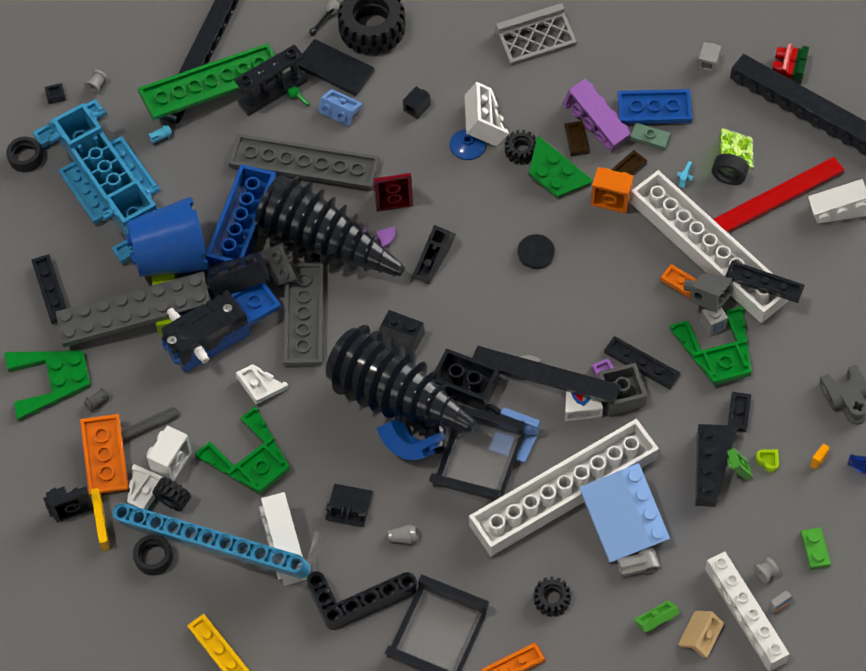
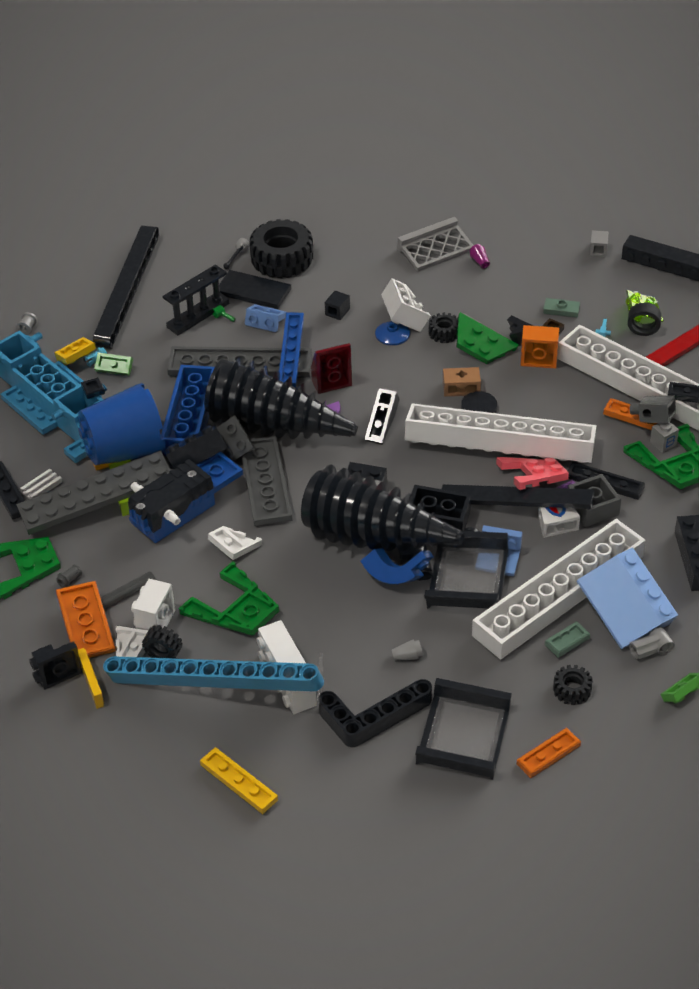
camera: 10 degrees left, 15 degrees down
(82, 284) = (39, 483): none -> white tile
(138, 128) = (74, 351): none -> yellow bracket
(145, 189) = (92, 388): none -> black tile
(154, 569) = (151, 715): black tyre -> none
(176, 147) = (113, 364): none -> bright green plate
(201, 83) = (128, 310): green plate -> none
(348, 505) = (345, 634): black hinge -> none
(356, 158) = (291, 347): none -> blue plate
(523, 220) = (461, 381): none -> medium nougat brick
(547, 294) = (500, 433): none -> white brick
(559, 544) = (567, 639): none -> sand green plate
(576, 138) = (493, 316): dark brown tile -> none
(578, 344) = (535, 469): none -> coral wing
(579, 56) = (479, 255): none -> magenta cone
(596, 115) = (507, 293): medium lavender wedge -> none
(597, 161) = (516, 327): none -> black slope
(654, 106) = (559, 284): blue plate -> none
(793, 64) = (674, 236): hips -> none

